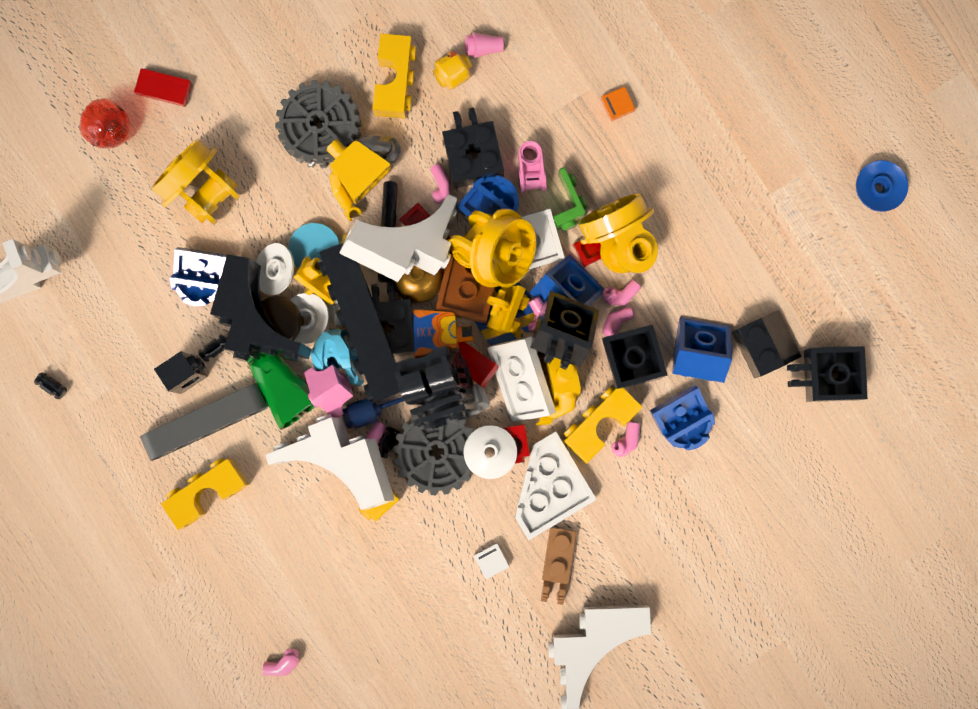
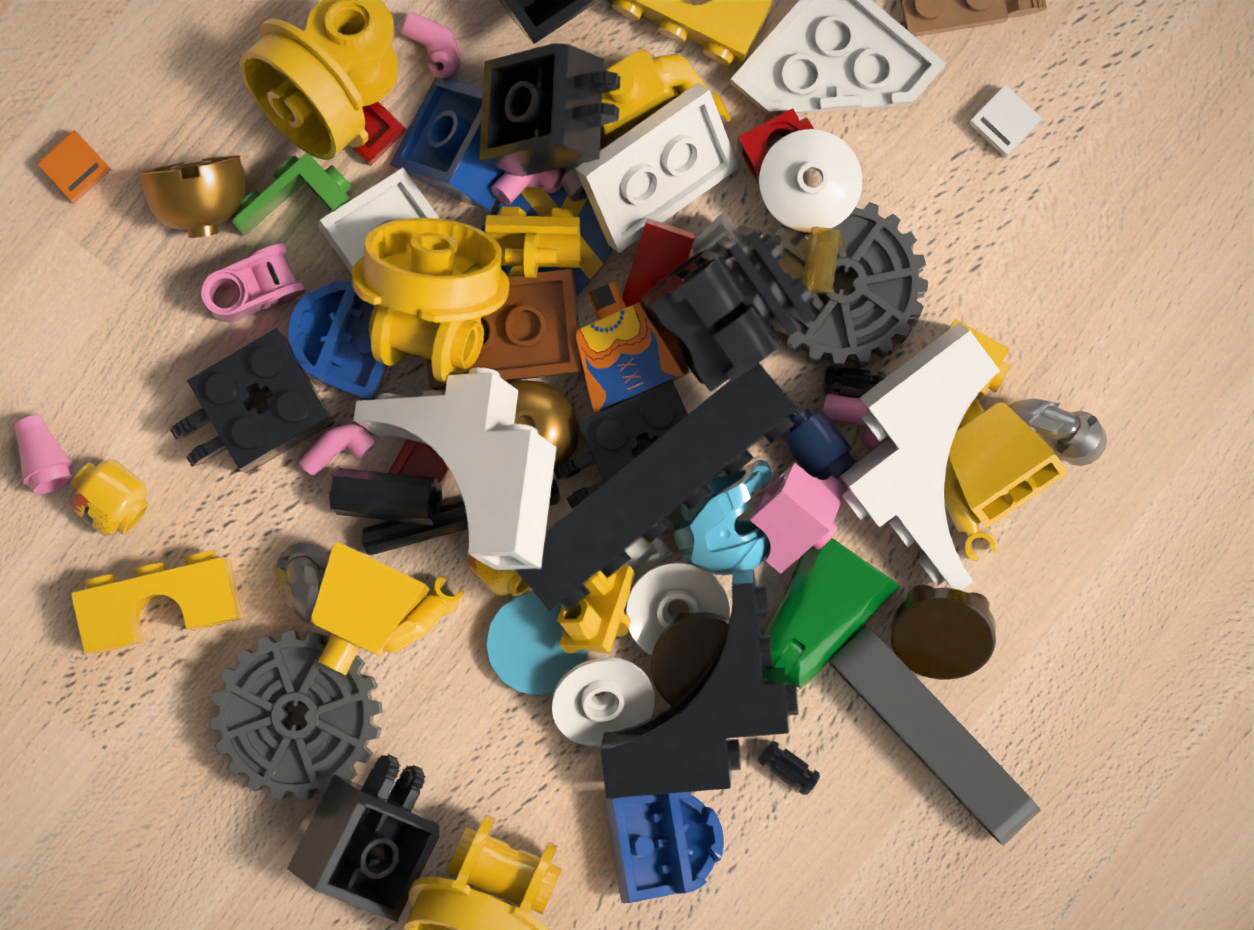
camera: 105 degrees left, 0 degrees up
(181, 372) = (857, 803): black brick -> none
(184, 504) = (1099, 719): yellow arch -> none
(245, 136) = (368, 843): none -> black hinge
(250, 442) = (943, 632): none -> dark brown tile
(321, 499) = (1003, 461): none -> yellow torso
(407, 198) = (385, 496): none -> black axle
(448, 443) = (822, 259): none -> clear yellow pin
(584, 155) = (196, 193): none -> pearl gold cylinder
(615, 319) = (490, 41): bright pink arm -> none

